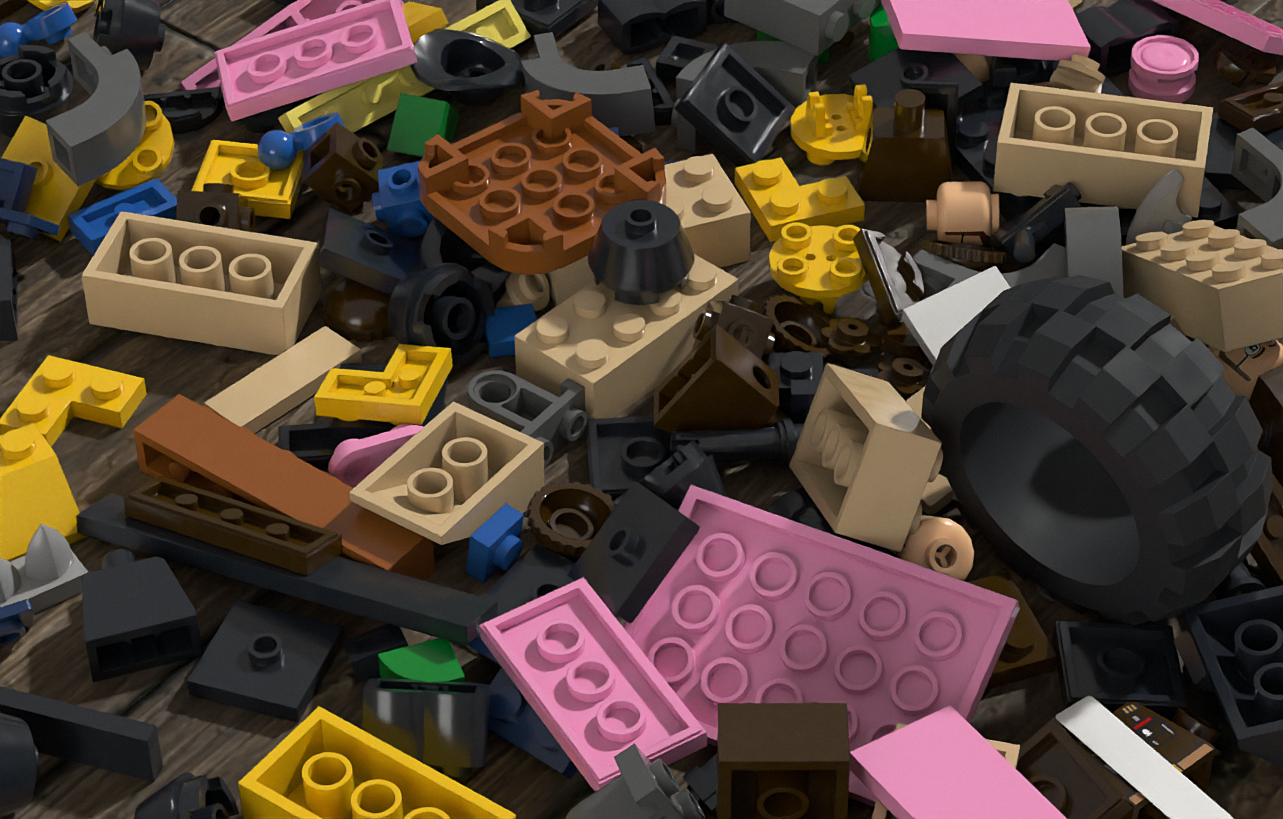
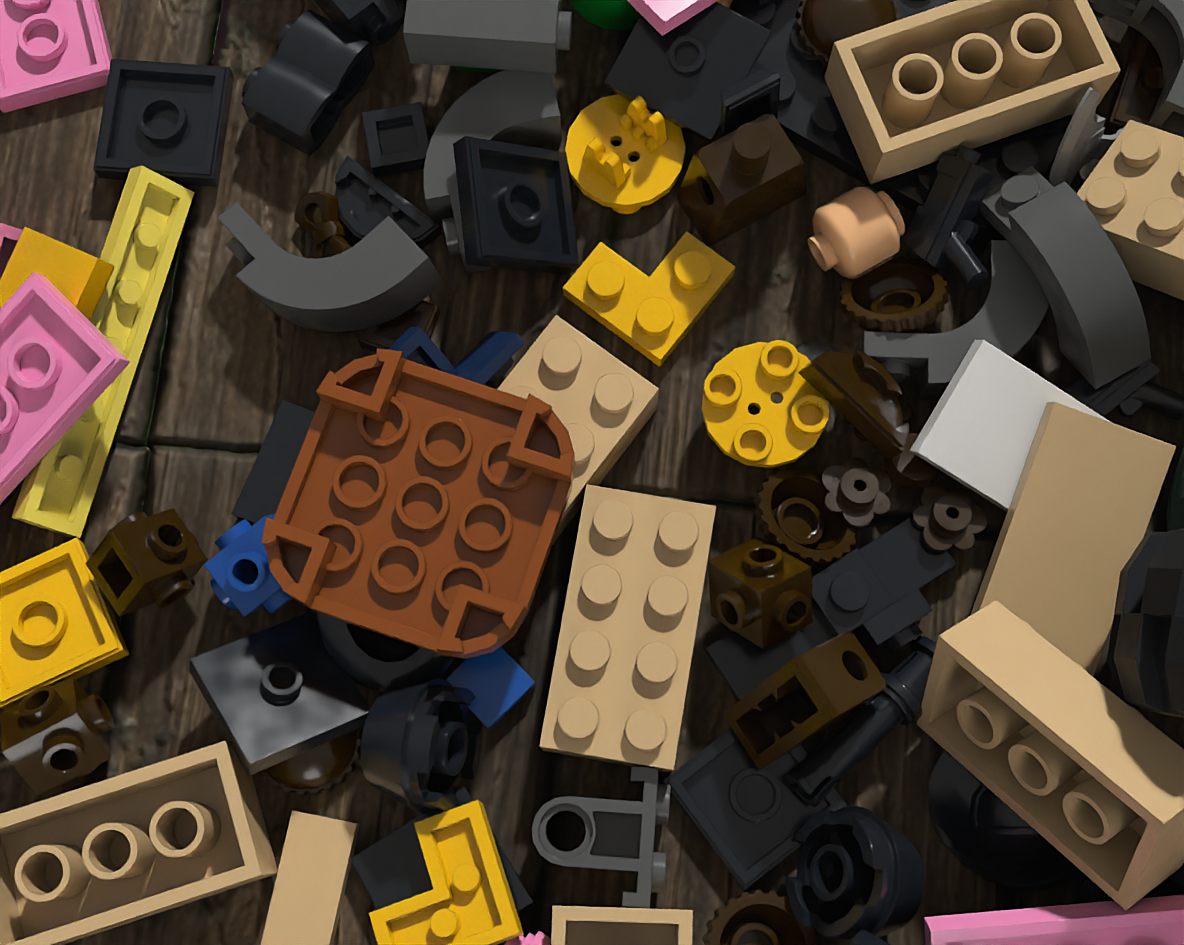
camera: 30 degrees left, 35 degrees up
(280, 149) = (74, 528): blue plate -> none
(418, 121) = (181, 425): green brick -> none
(467, 66) = (174, 311): black hat -> none
(641, 252) = (618, 569): black cone -> none

